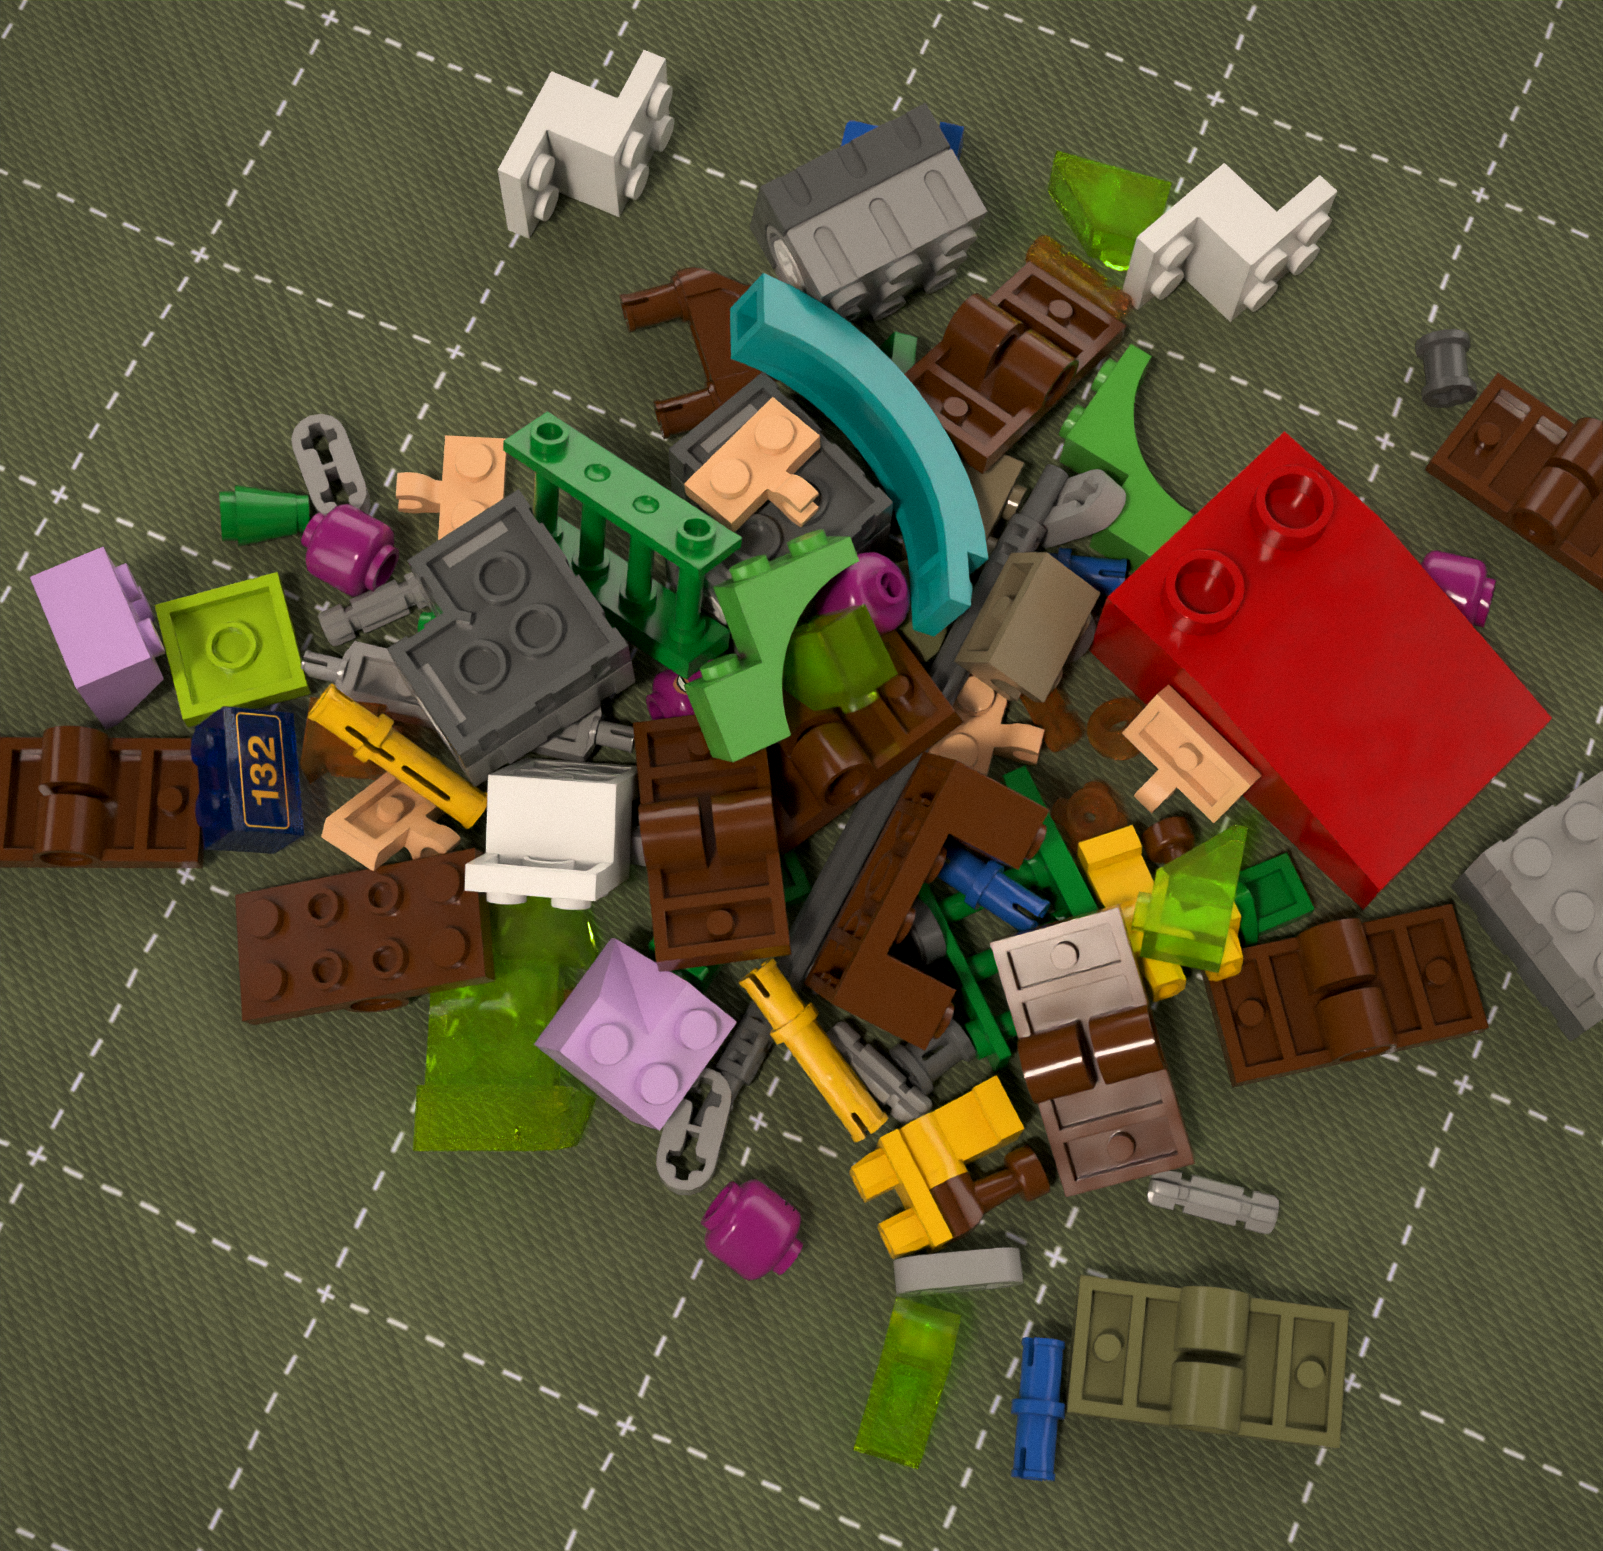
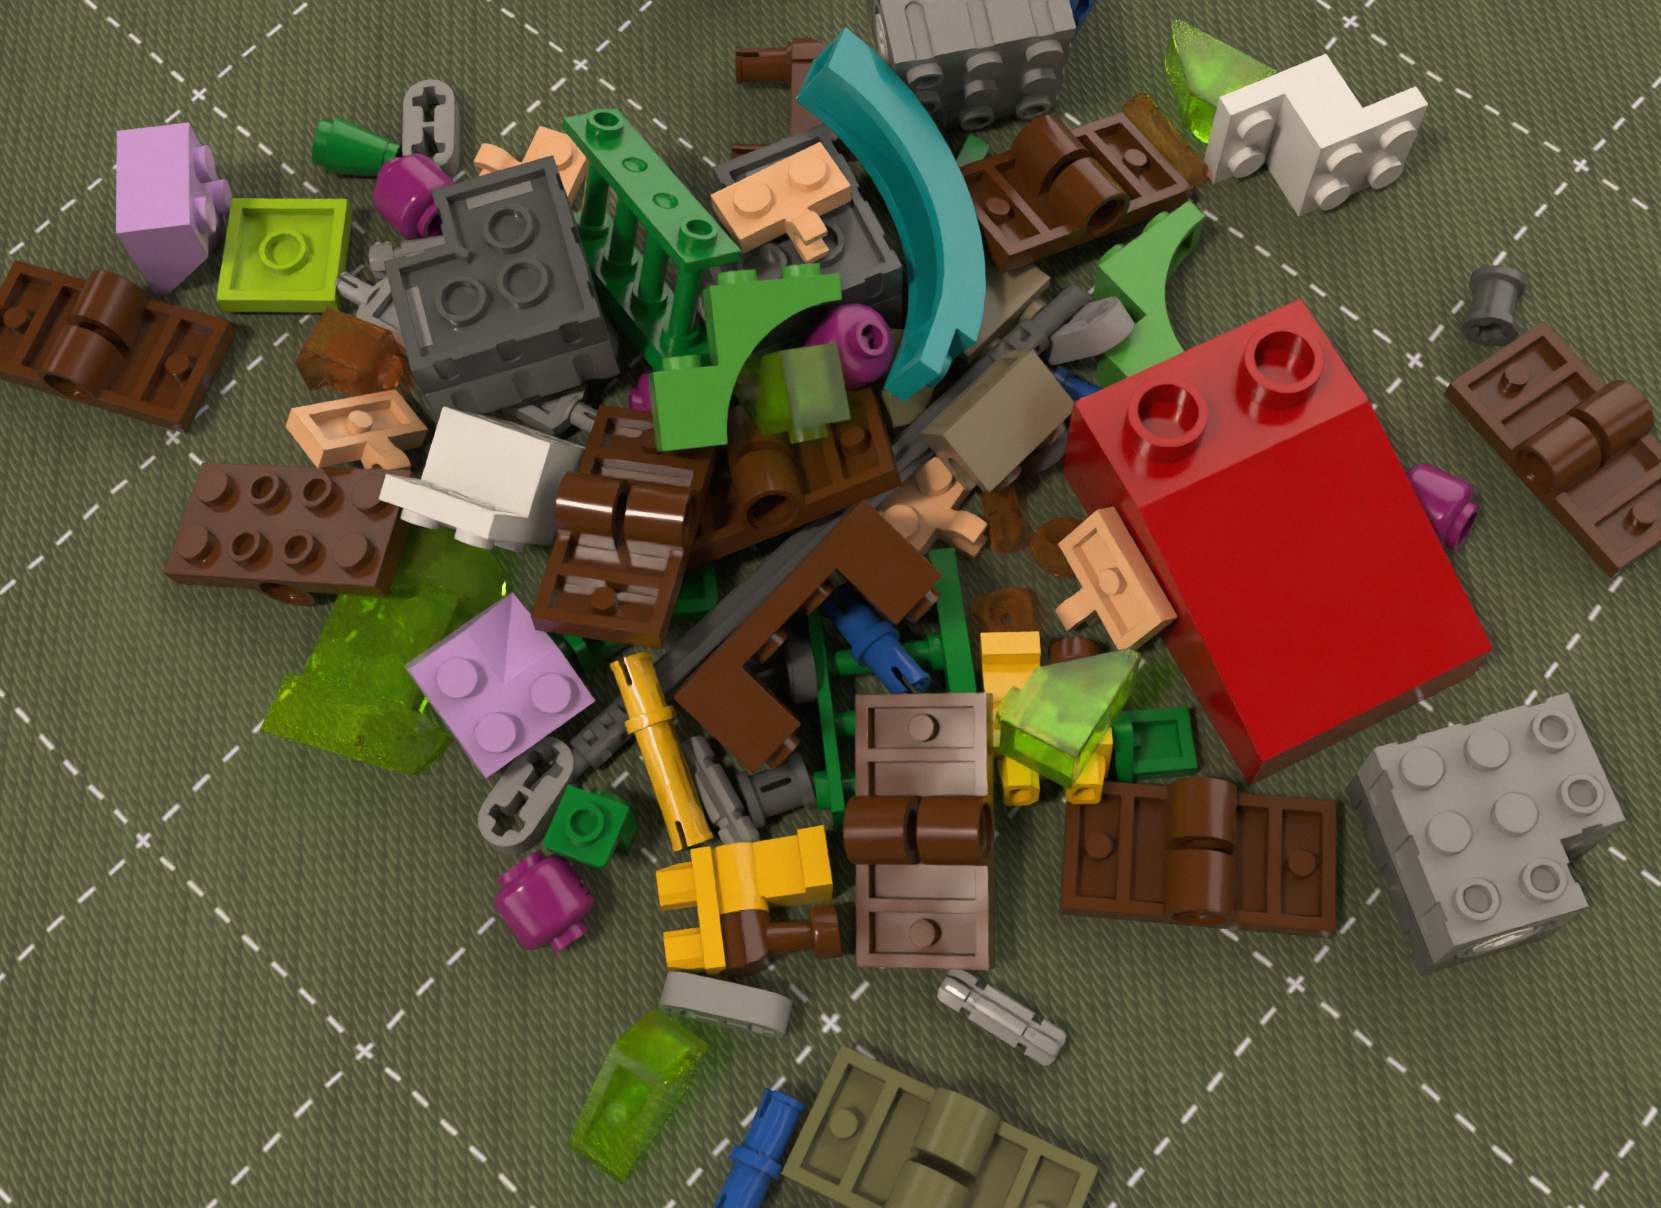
camera: 25 degrees right, 5 degrees down
(247, 780) = (246, 364): clear blue brick -> none
(378, 741) = (376, 370): yellow pin -> none
(775, 1146) = (591, 827): none -> green bracket

